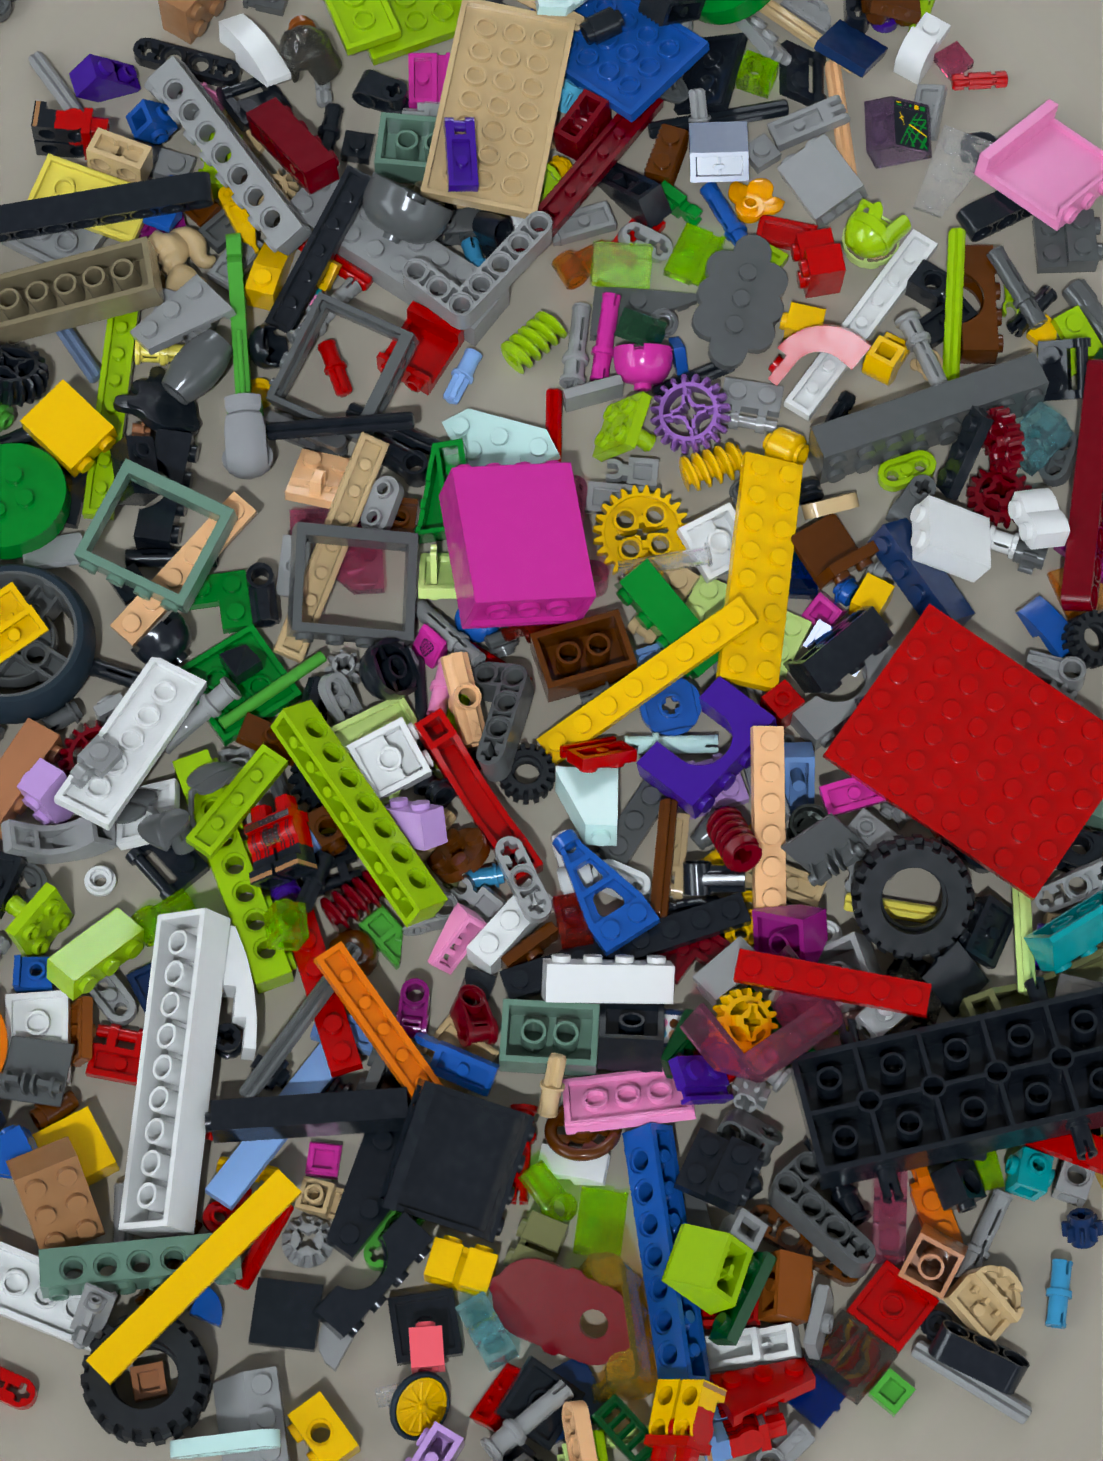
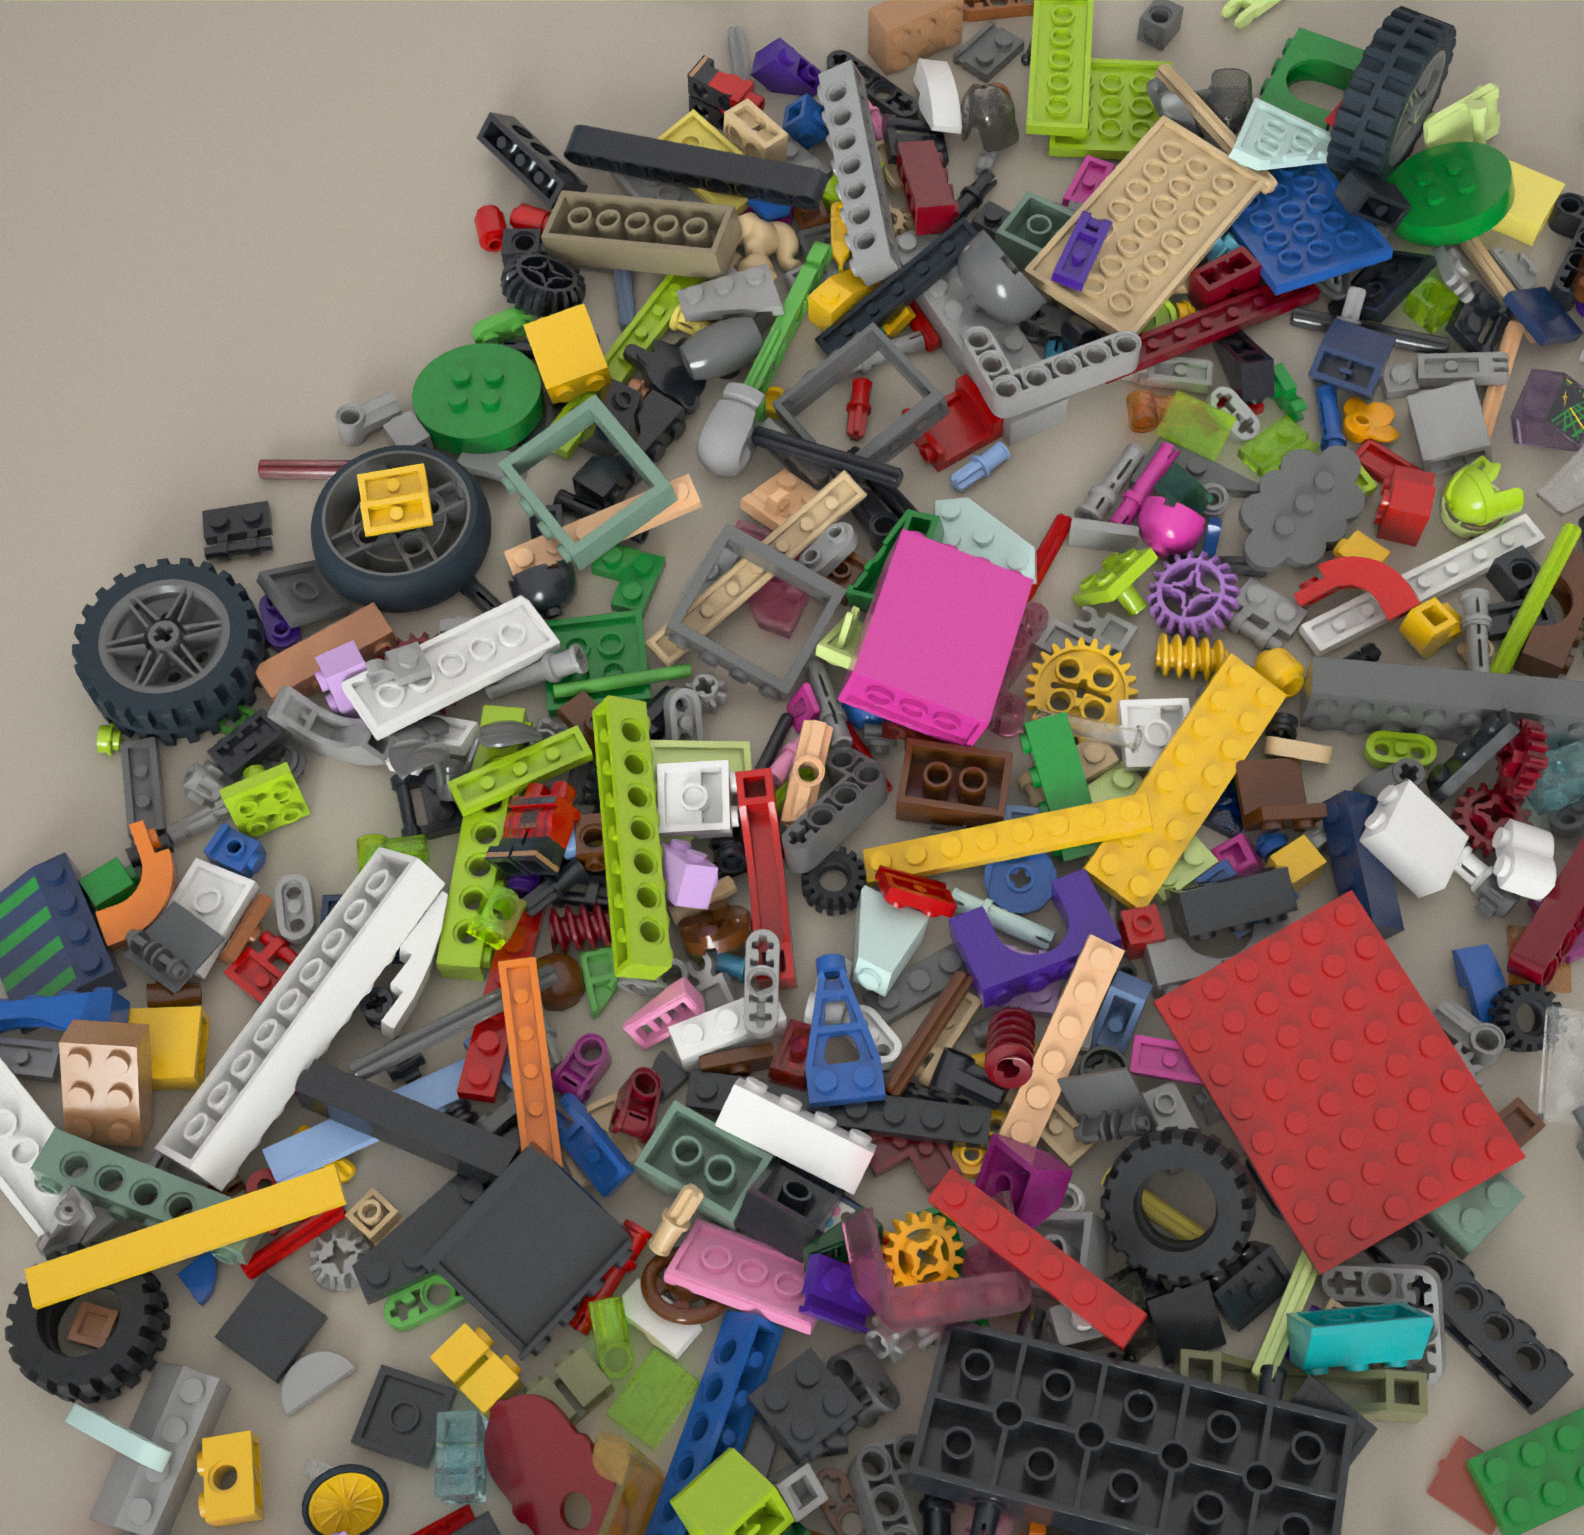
camera: 30 degrees right, 5 degrees down
(63, 717) = (411, 619): dark grey pin -> none
(95, 954) = (299, 857): lime brick -> none
(96, 873) = (352, 782): white plate -> none
(241, 663) = (605, 641): black slope -> none
(262, 597) = (666, 589): black piece -> none
(266, 347) = (799, 357): black hair -> none
(323, 1160) = (406, 1181): dark pink tile -> none
(380, 92) = (1040, 178): black piece -> none
(389, 670) = (748, 712): black cylinder -> none
(401, 1245) = (327, 1351): black arch -> none
(426, 1347) = (385, 1442): coral brick -> none
(531, 339) = (1067, 459): lime piece -> none
(602, 26) = (1290, 194): black brick -> none
(667, 154) = (1298, 341): reddish brown brick -> none
(717, 976) = (915, 1185): light grey hinge -> none

